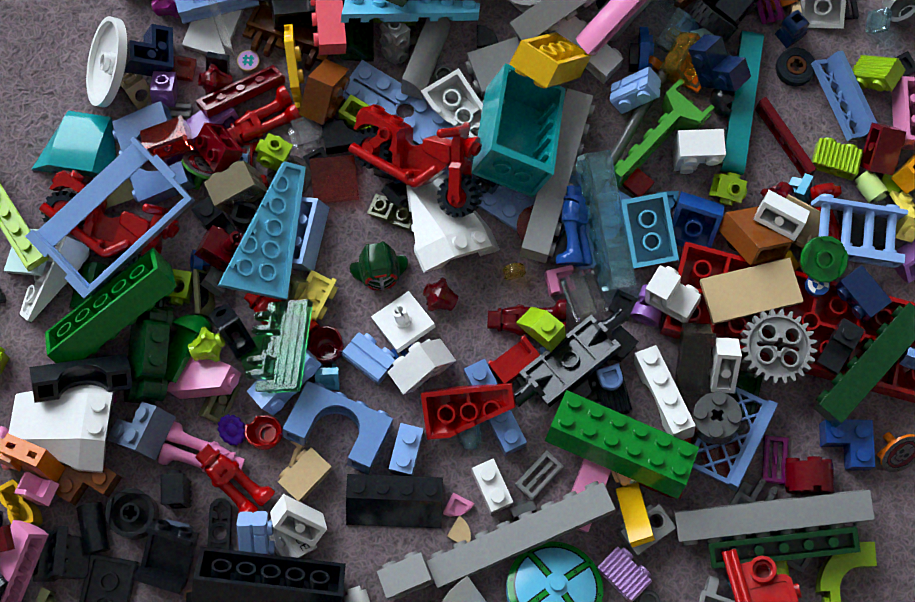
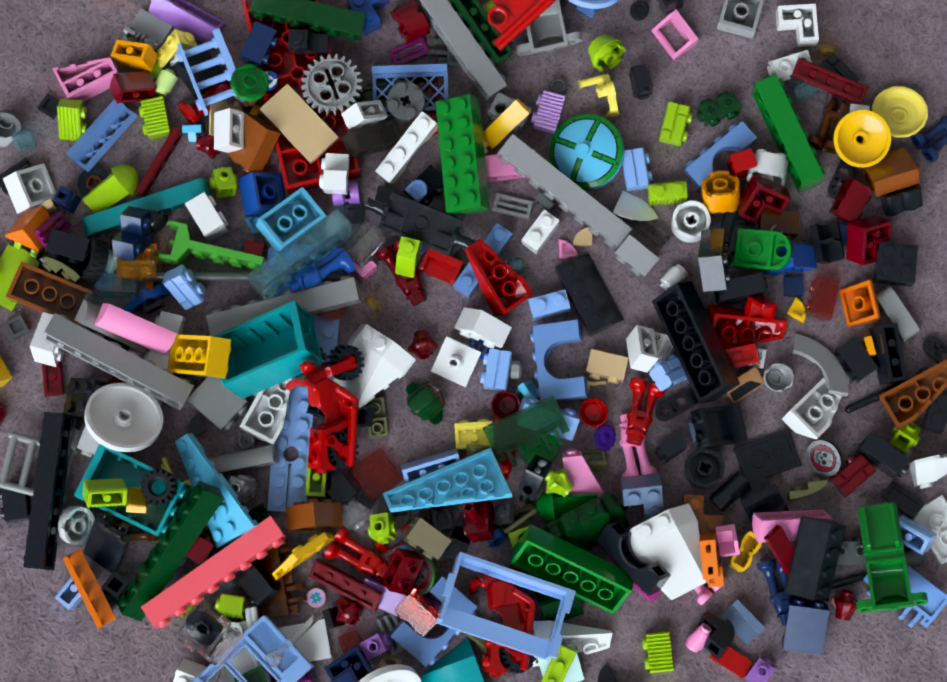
camera: 110 degrees left, 5 degrees up
(358, 377) = (516, 370): none -> light grey tile
(781, 85) = (113, 188): none -> lime piece

